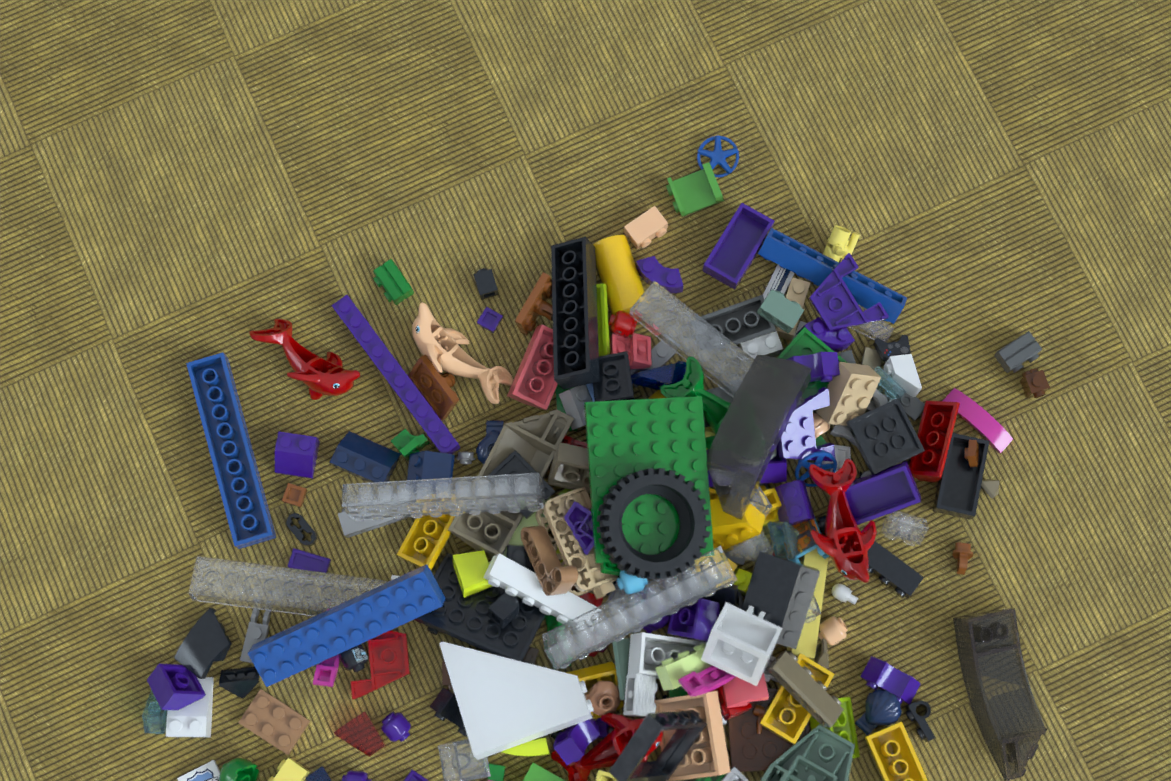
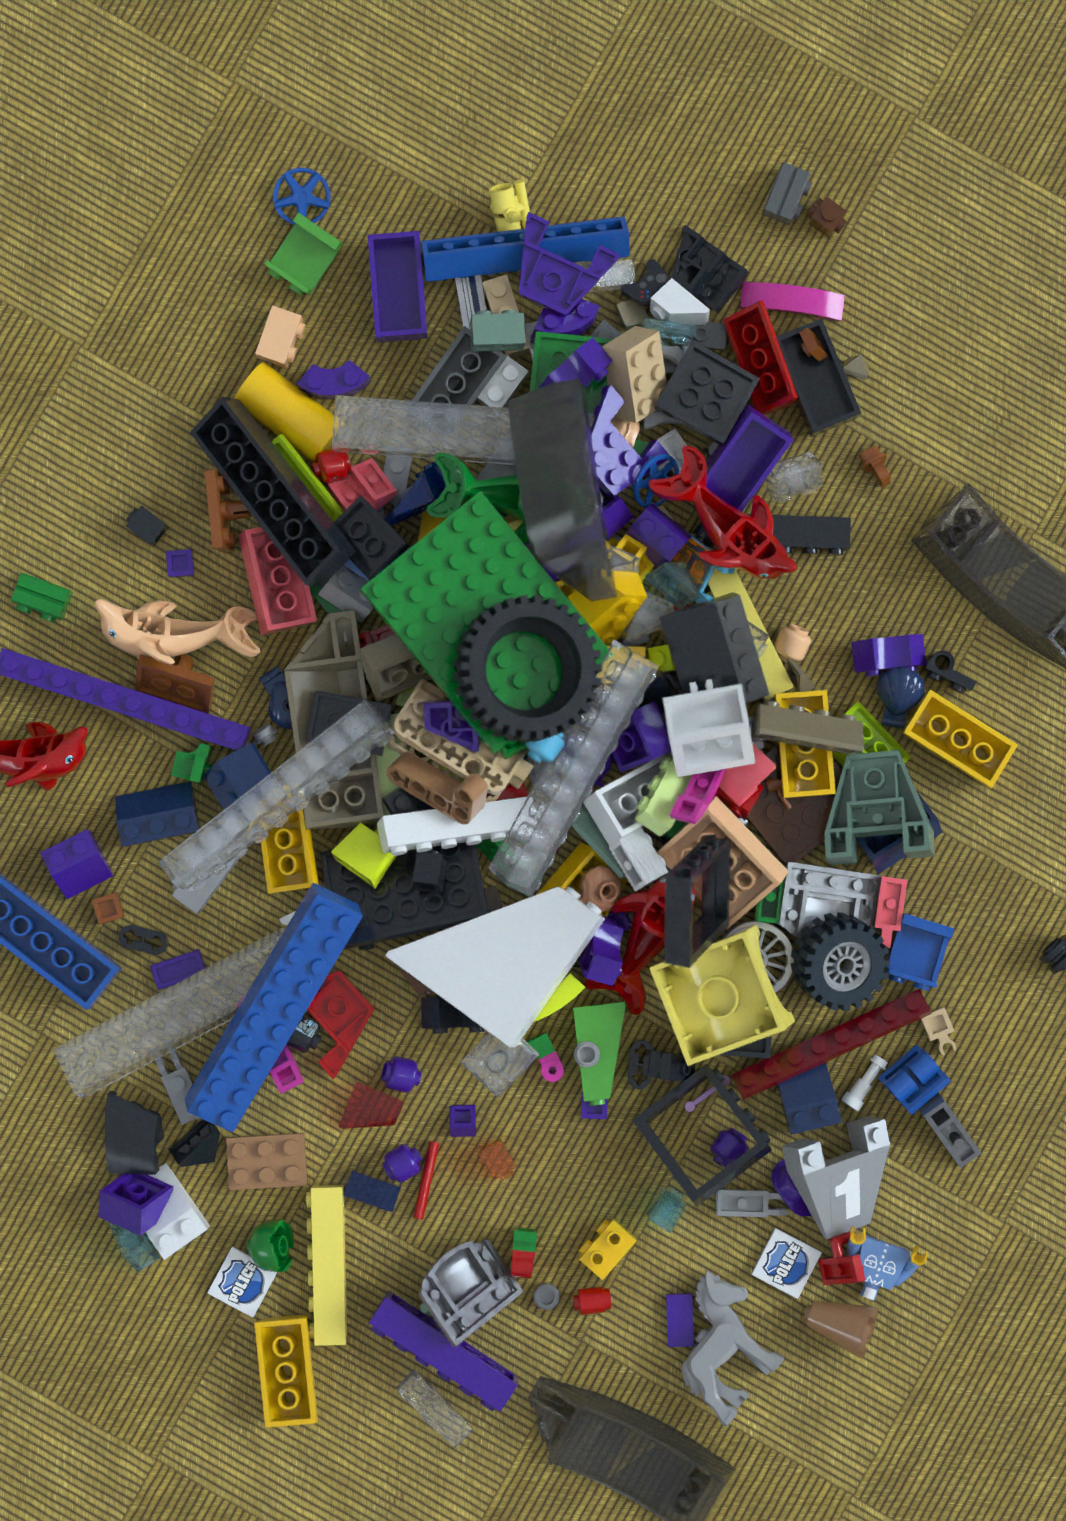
camera: 40 degrees left, 10 degrees up
(843, 594) = (776, 595): white cylinder -> none
(936, 365) = (706, 271): none -> black slope

